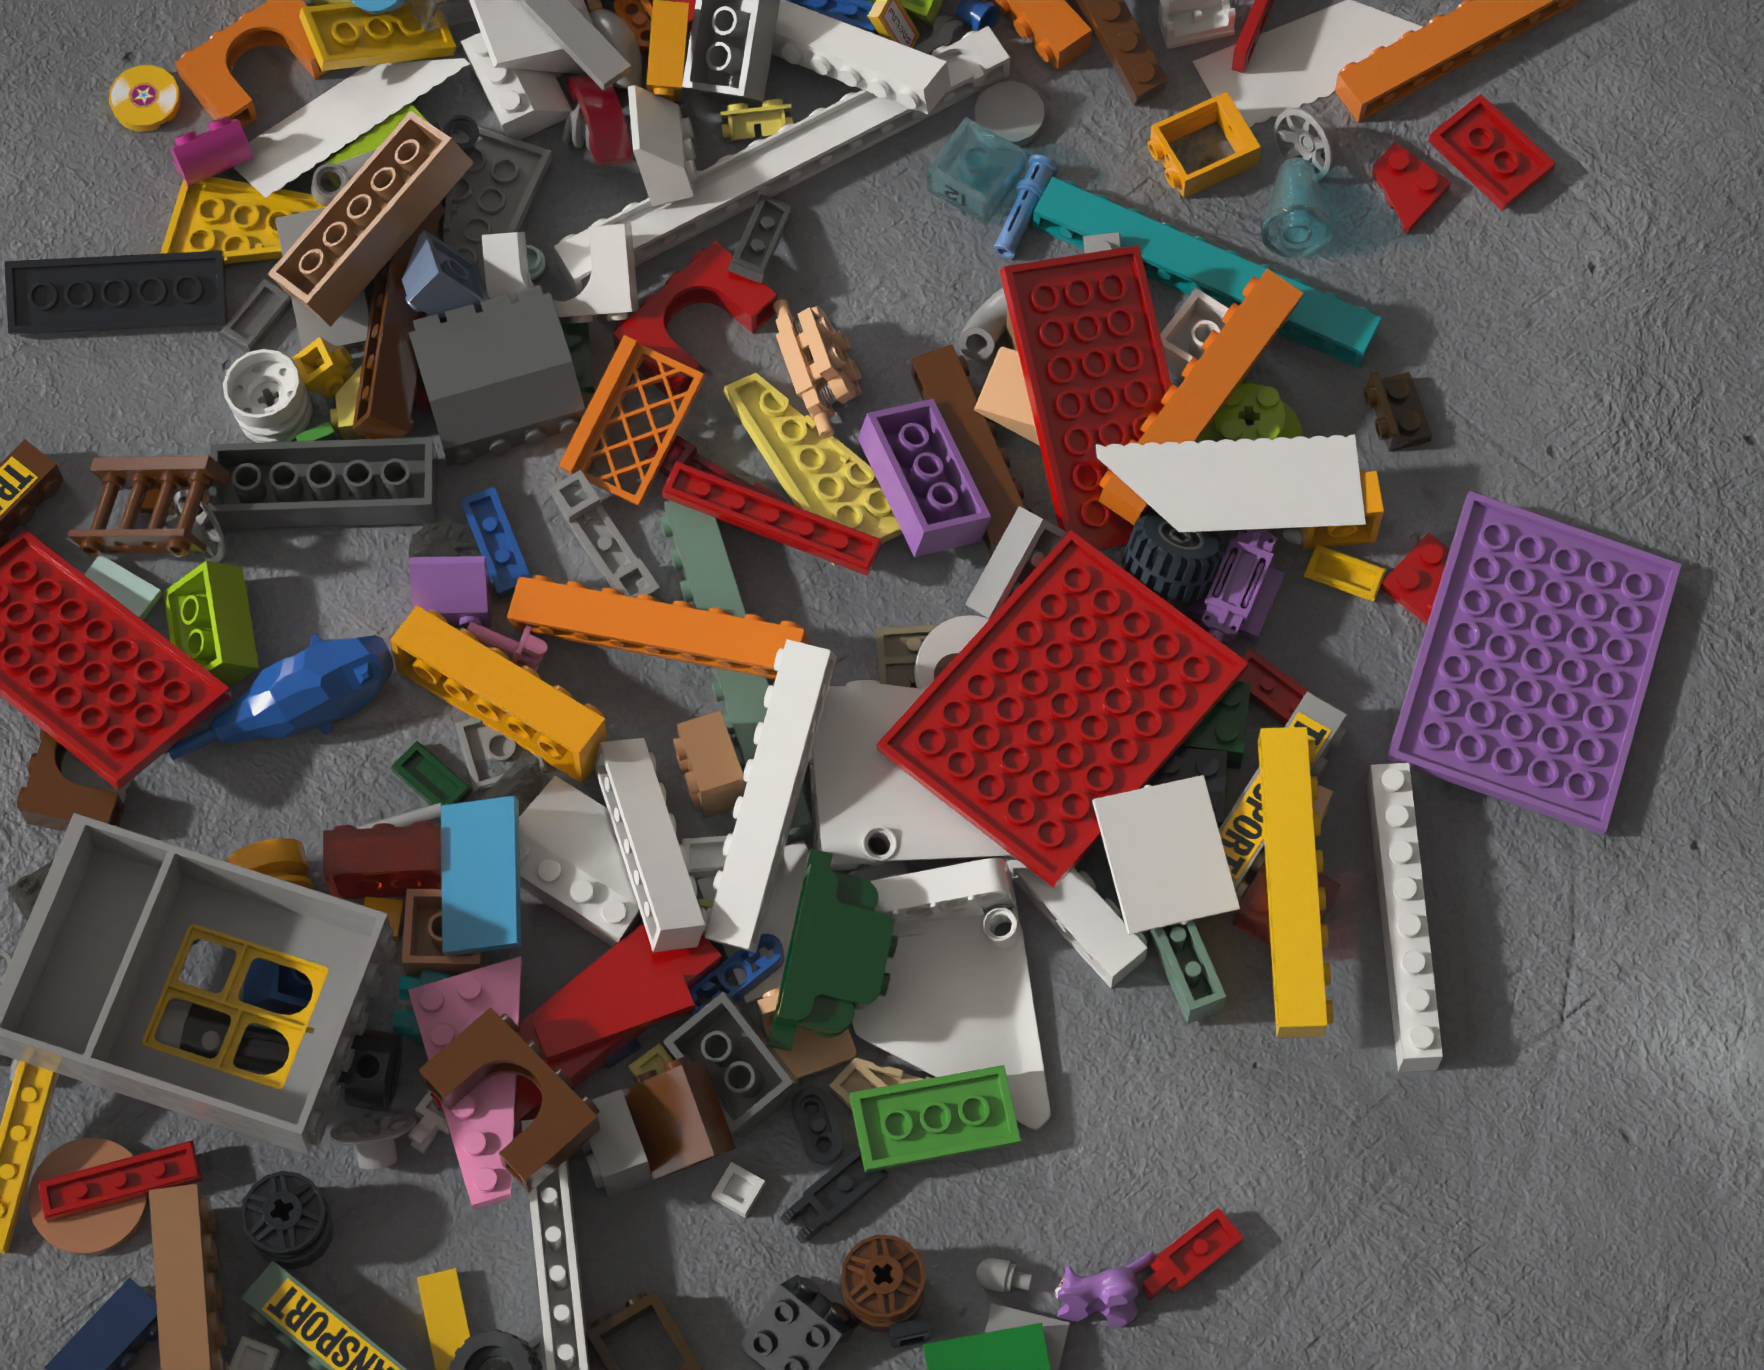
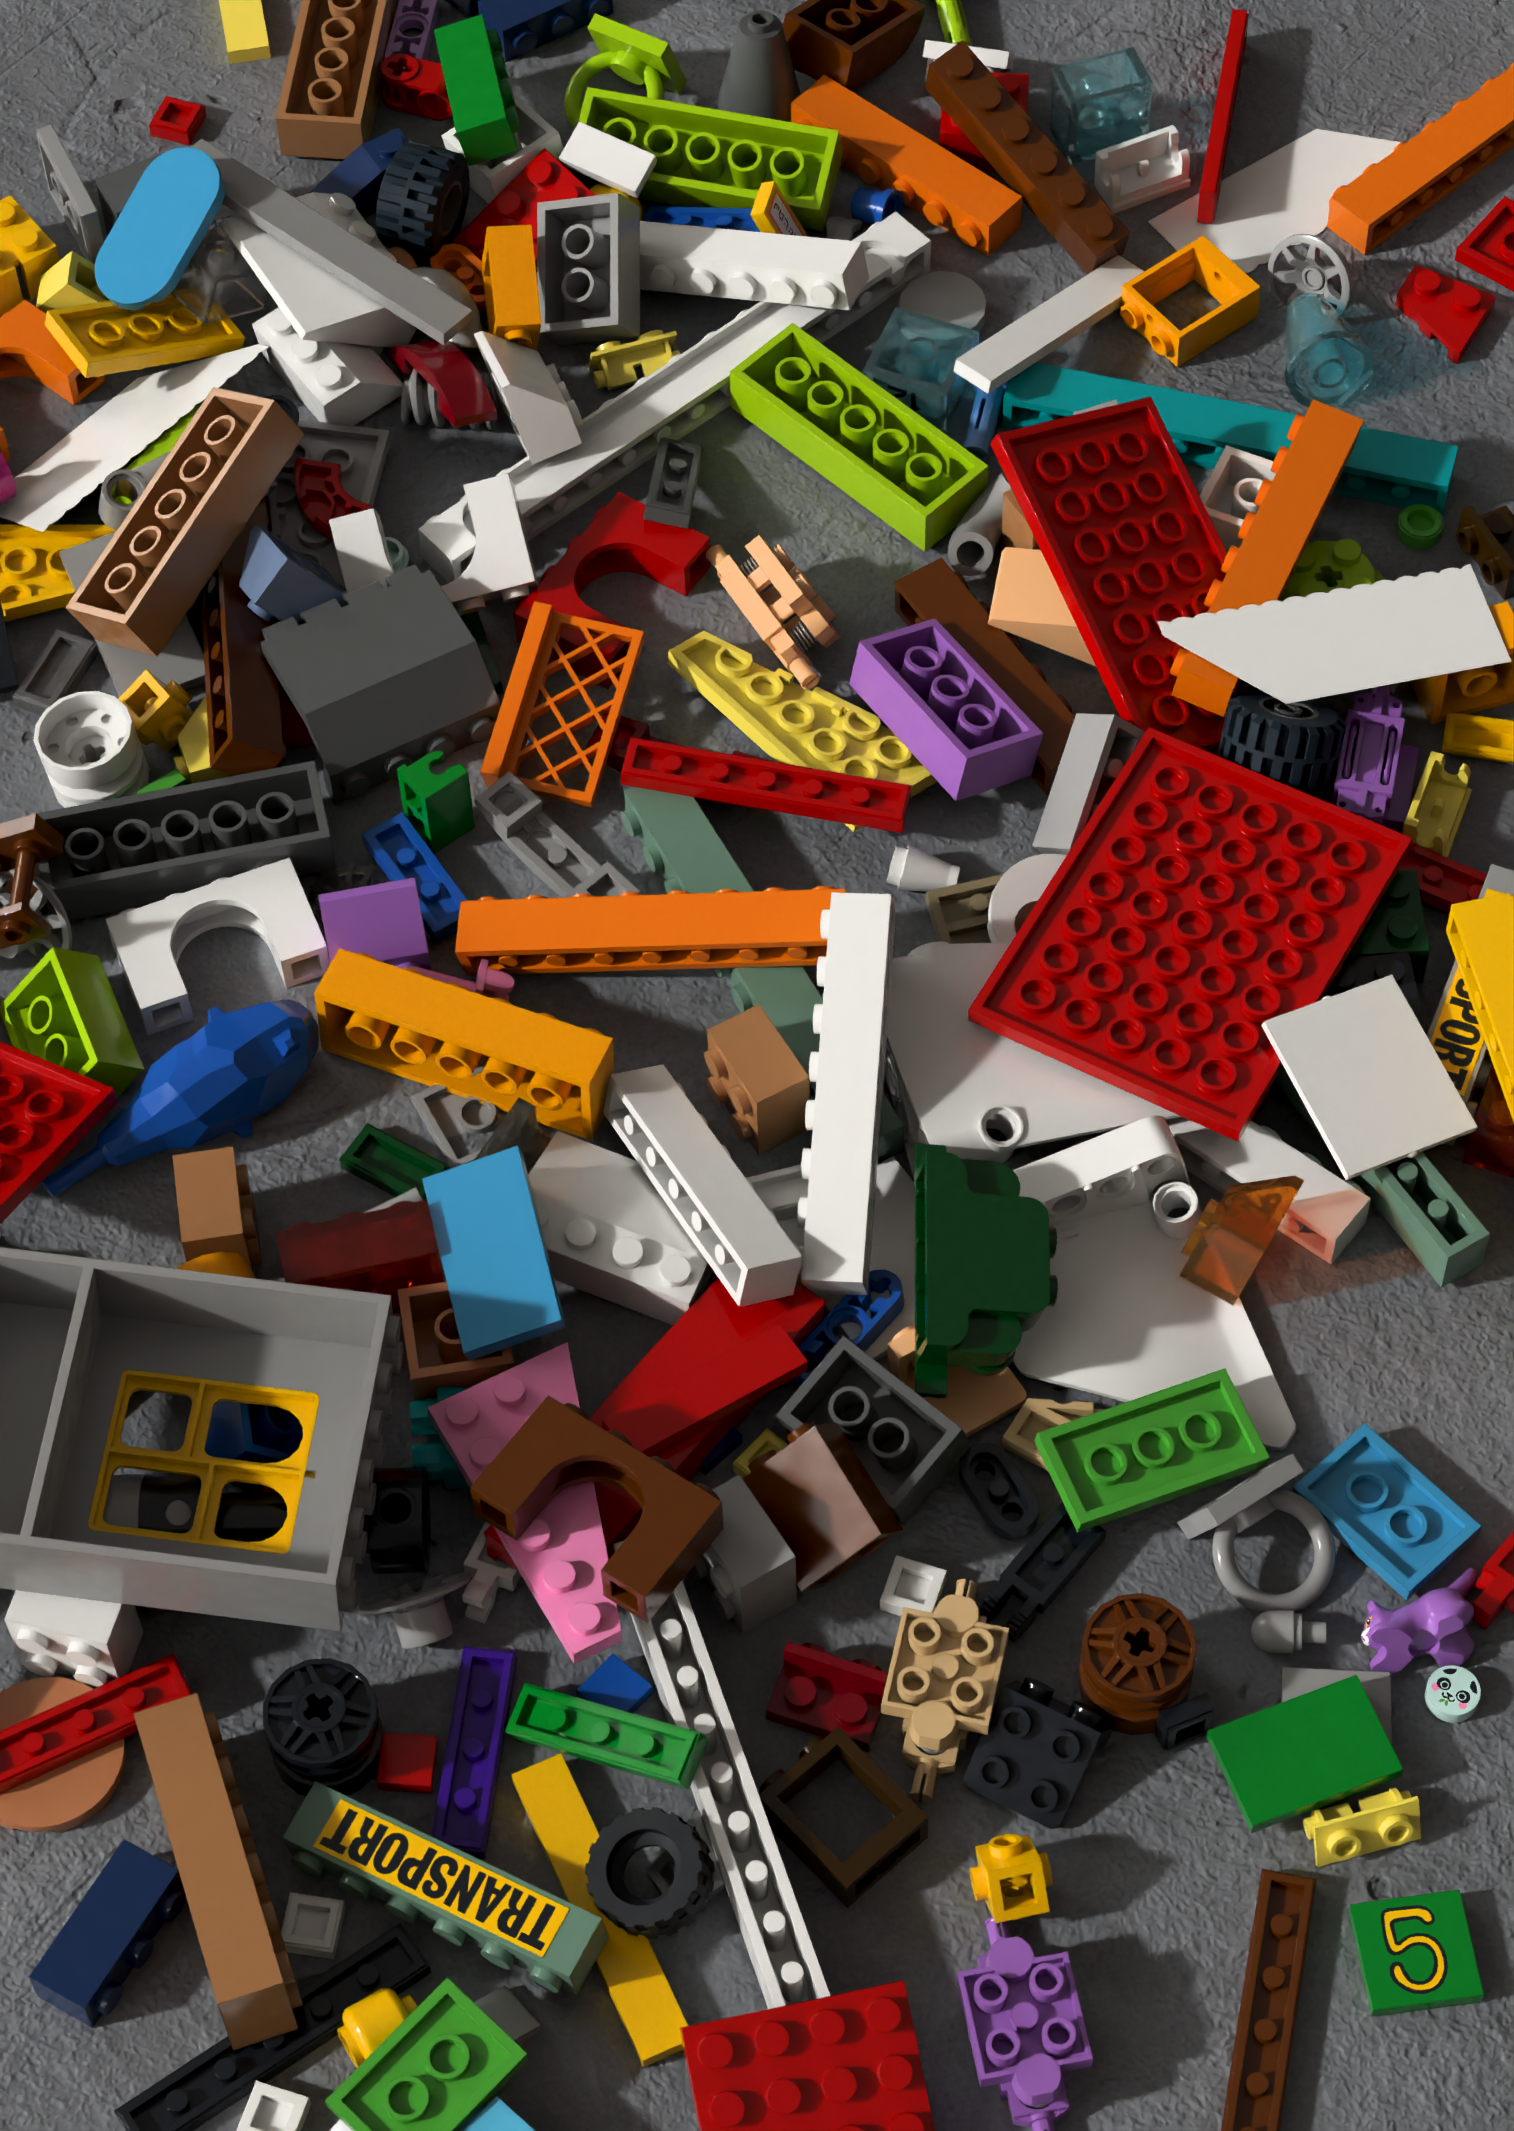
camera: 10 degrees left, 10 degrees down
(133, 1121) = (74, 1636): none -> white brick
(287, 557) = (259, 900): none -> white arch
(287, 799) = (215, 1205): none -> medium nougat brick
(345, 1252) = (407, 1762): none -> red tile
(394, 1253) = (474, 1749): none -> dark purple tile
(487, 1266) = (607, 1736): none -> green tile
(488, 205) = (322, 494): none -> red tile
(505, 1227) = (616, 1686): none -> blue tile
(519, 491) = (436, 803): none -> green hinge
(658, 1261) = (828, 1692): none -> dark red bracket
(740, 1268) = (943, 1682): none -> tan piece
(877, 608) = (919, 871): none -> white cone
(912, 222) = (858, 436): none -> lime brick
(993, 1175) = (1245, 1506): none -> light grey tile
(1036, 961) = (1236, 1234): none -> clear orange slope
(1085, 151) = (1046, 326): none -> white tile
(1098, 1196) = (1387, 1511): none -> dark azure plate
(1112, 1346) = (1452, 1693): none -> light aqua tile
(1285, 627) = (1438, 806): none -> light yellow hinge
(1338, 376) = (1420, 526): none -> bright green tile

